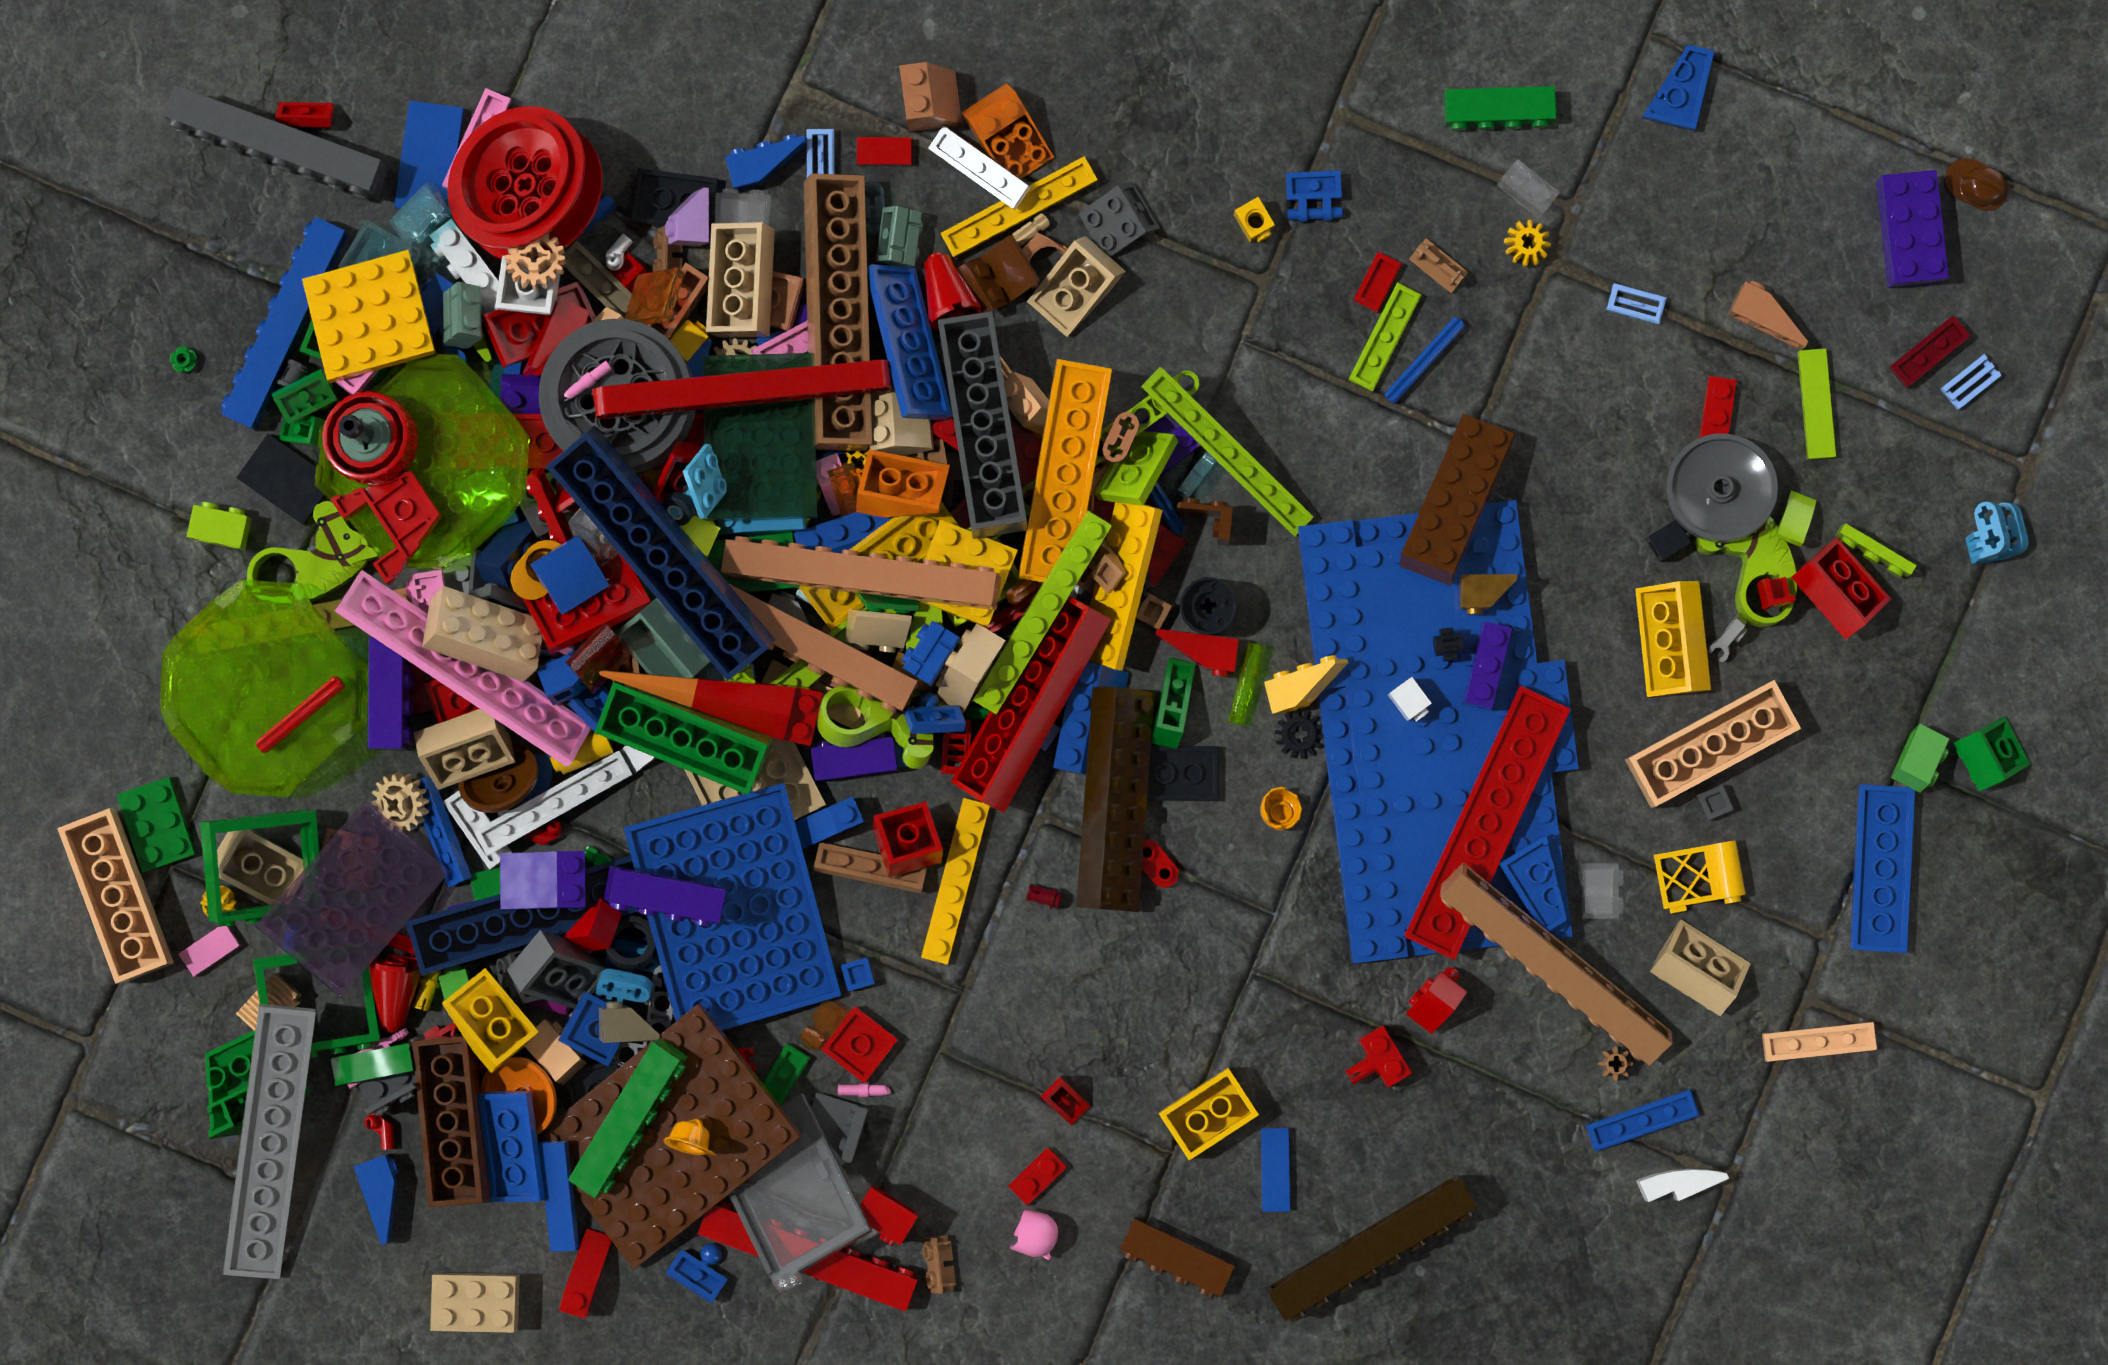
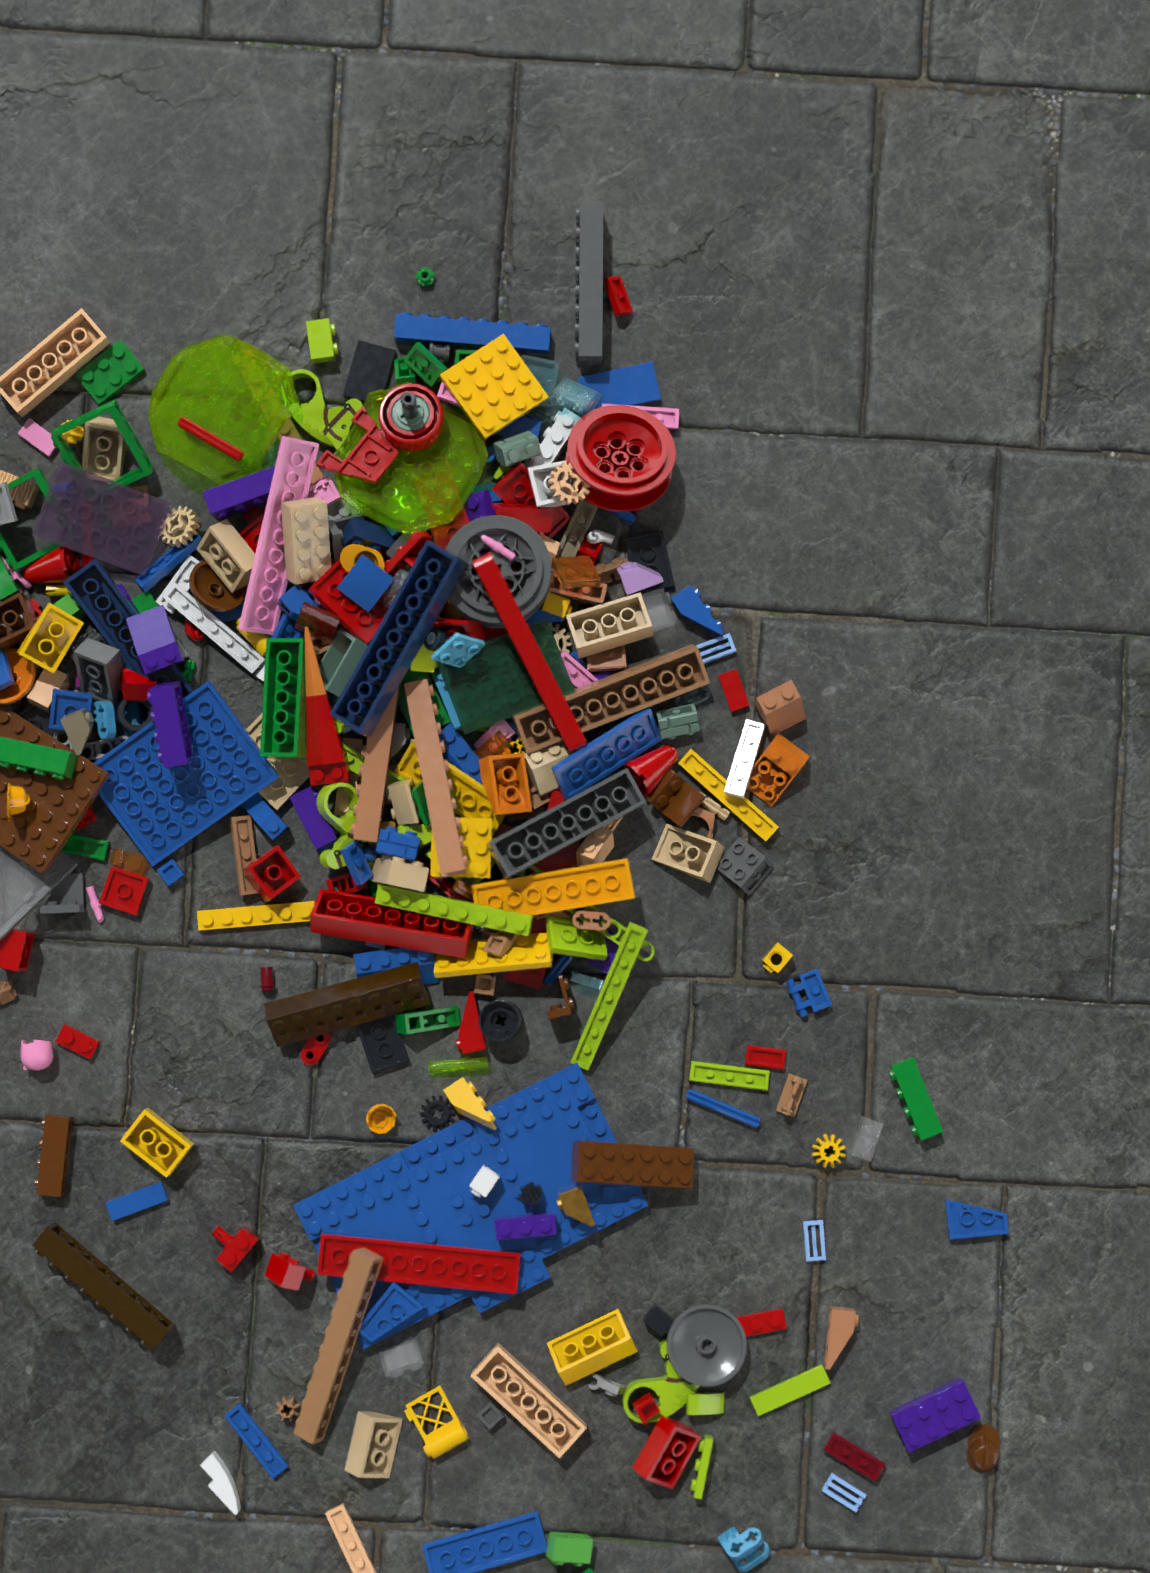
camera: 75 degrees right, 0 degrees up
(1065, 1100) = (134, 1041): red slope -> none

